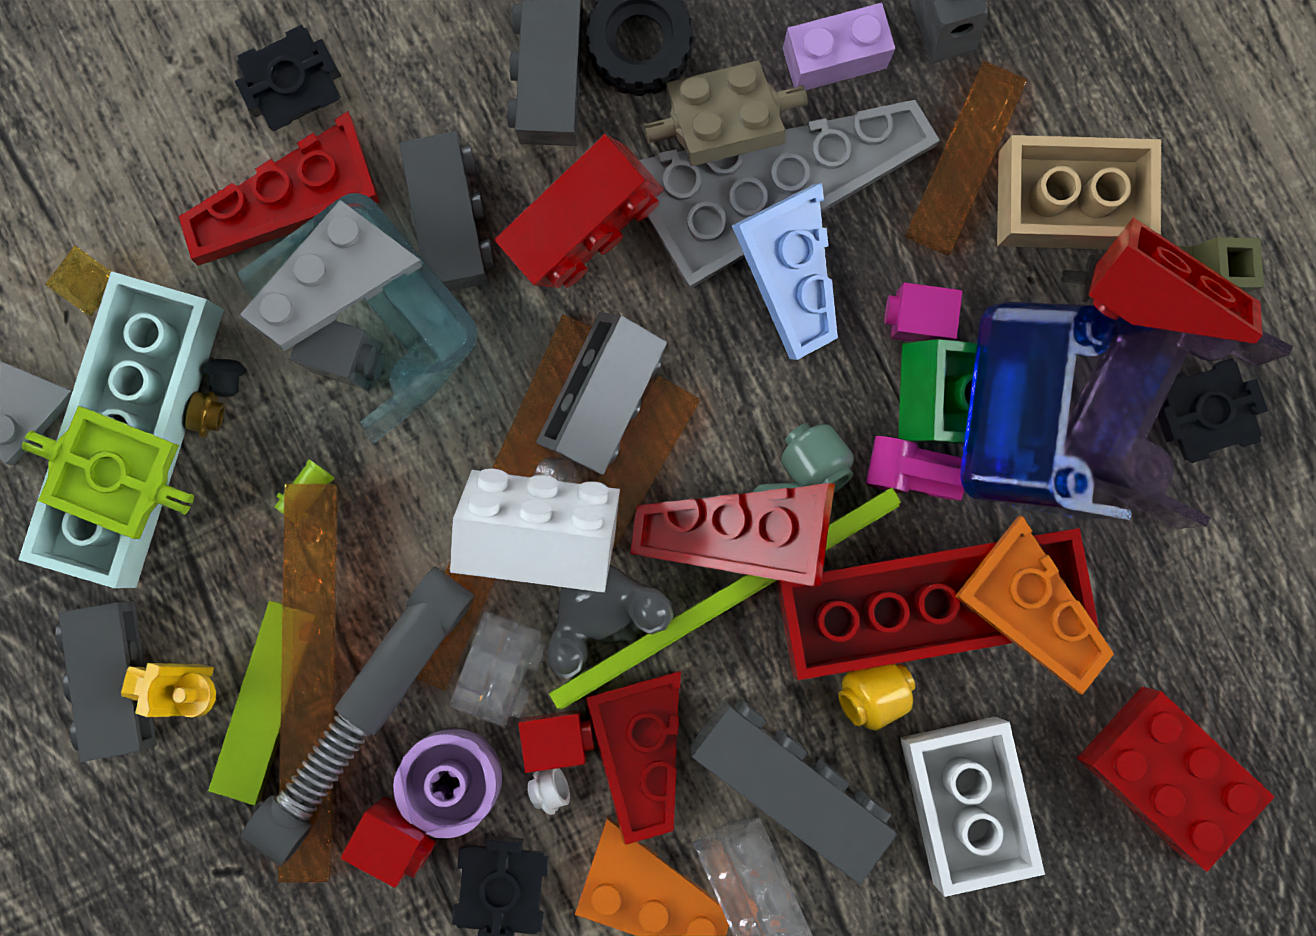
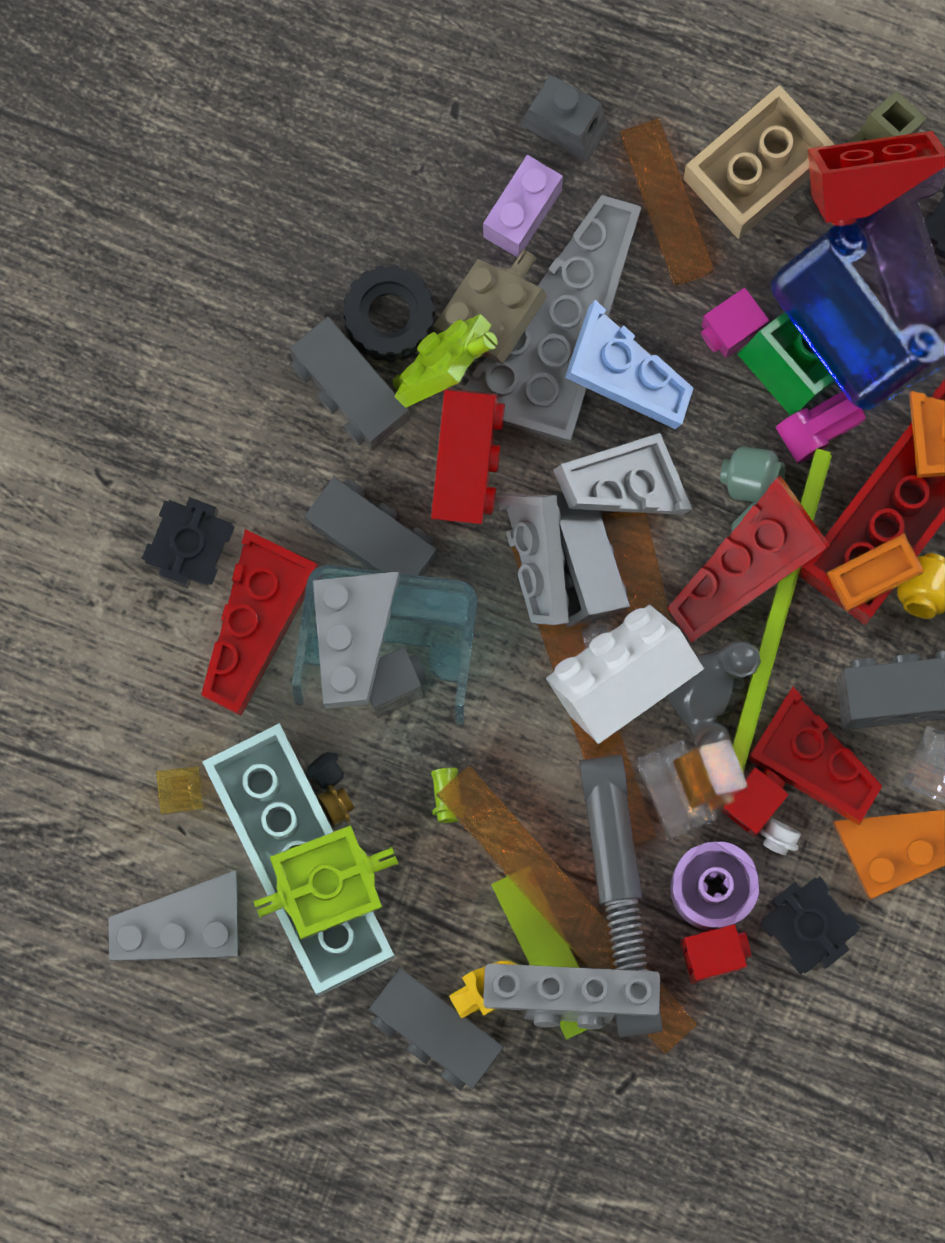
camera: 40 degrees left, 5 degrees down
(228, 763) = (571, 993): none -> light grey bracket
(528, 688) = (710, 775): none -> clear orange brick
(574, 346) = (538, 541): none -> light grey wing
(641, 113) = (444, 359): none -> lime plate
(701, 361) = (625, 479): none -> light grey wing
(838, 645) = (875, 572): none -> orange tile

